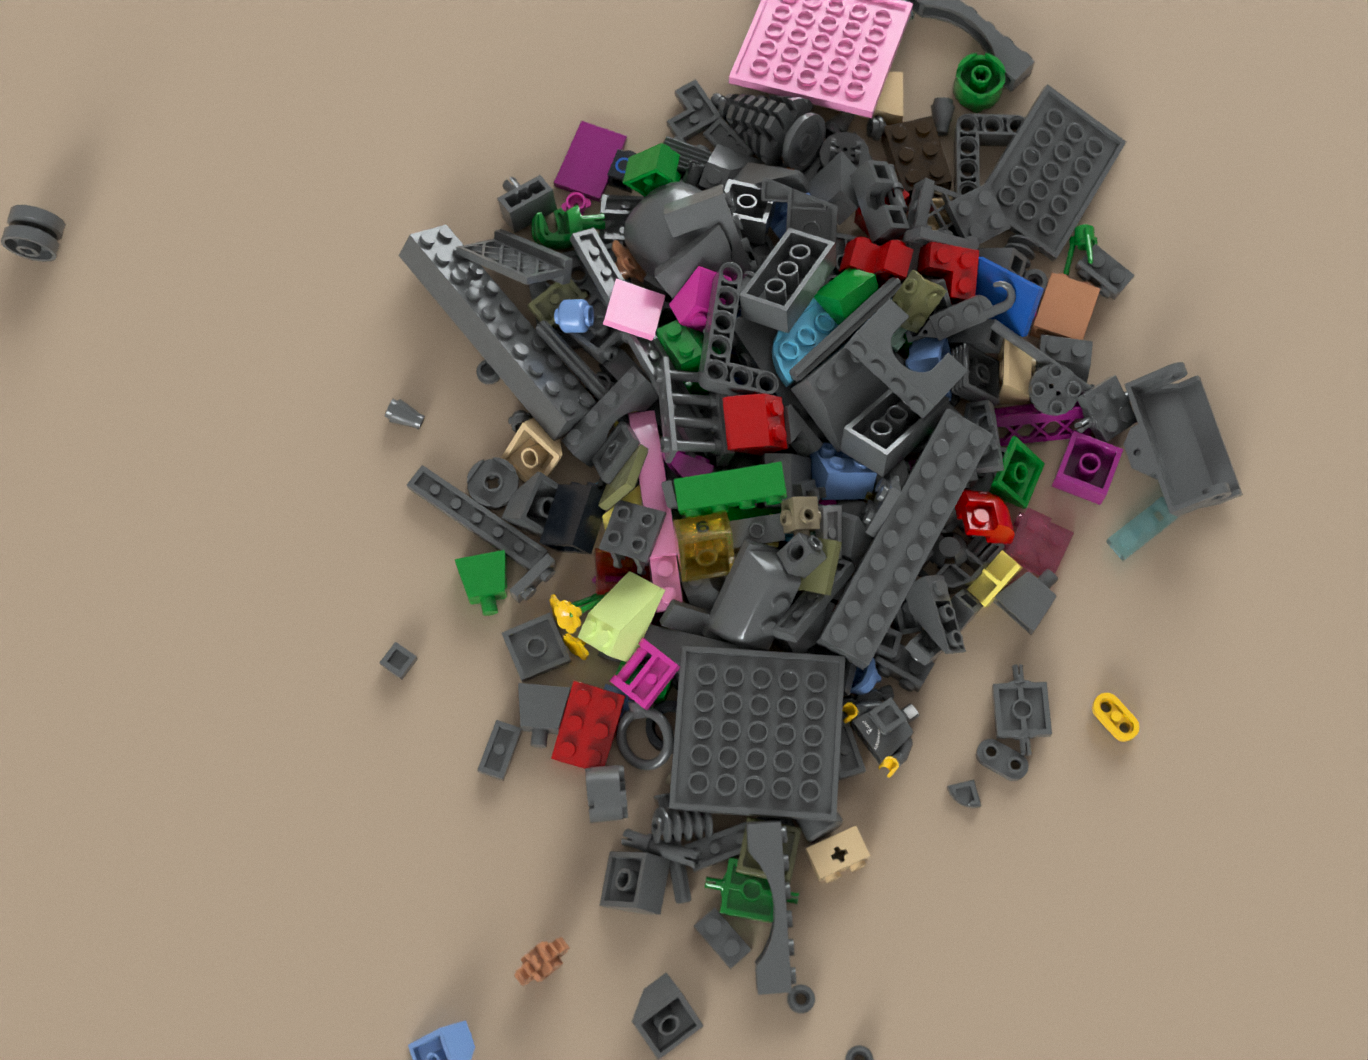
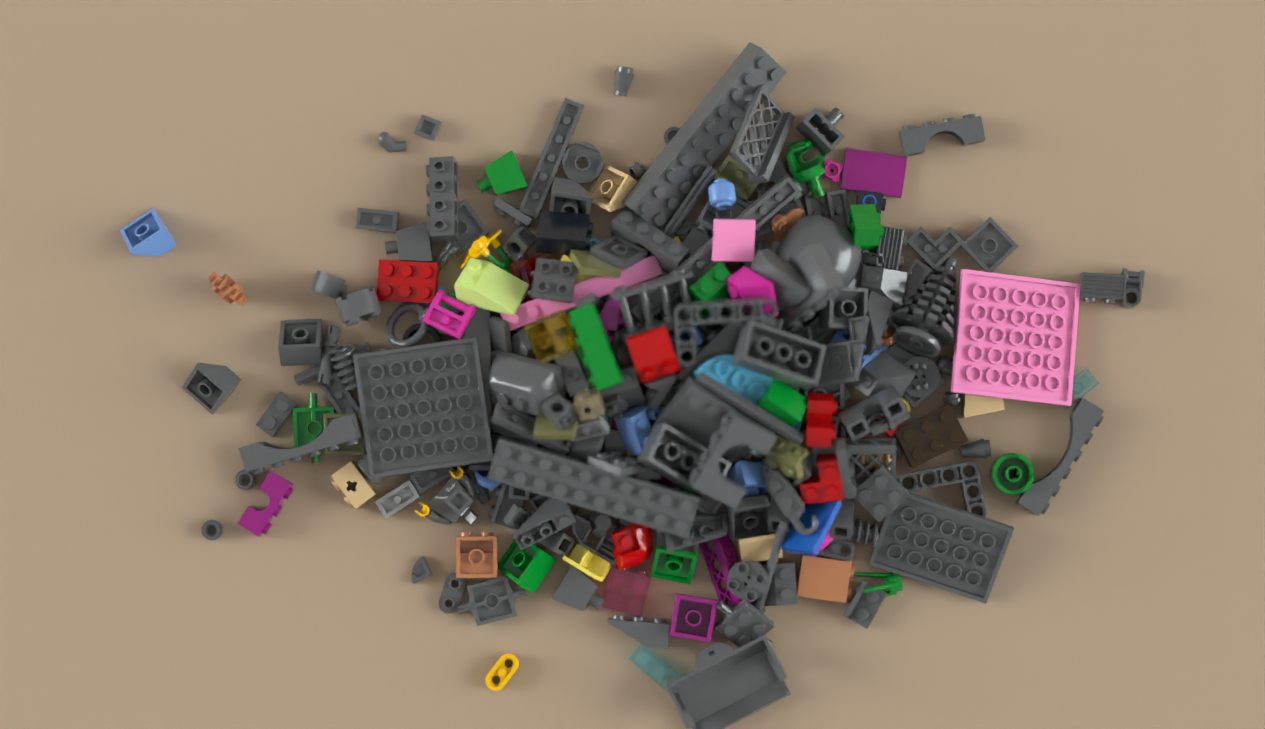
camera: 75 degrees right, 15 degrees up
(408, 713) = (389, 145): none -> dark grey arm
(494, 656) = (443, 199): none -> dark grey brick
(565, 668) = (446, 254): none -> dark grey axle
(567, 569) = (519, 243): none -> dark grey brick
(568, 53) = (967, 131): none -> dark grey arch
(569, 828) = (328, 285): none -> dark grey slope
(706, 55) = (989, 245): none -> dark grey plate
(824, 957) = (259, 520): none -> magenta arch
(867, 802) = (397, 499): none -> light grey plate
(960, 714) = (476, 555): none -> nougat plate
(985, 659) = (526, 566): none -> green slope
(1097, 525) = (648, 633): none -> dark grey slope

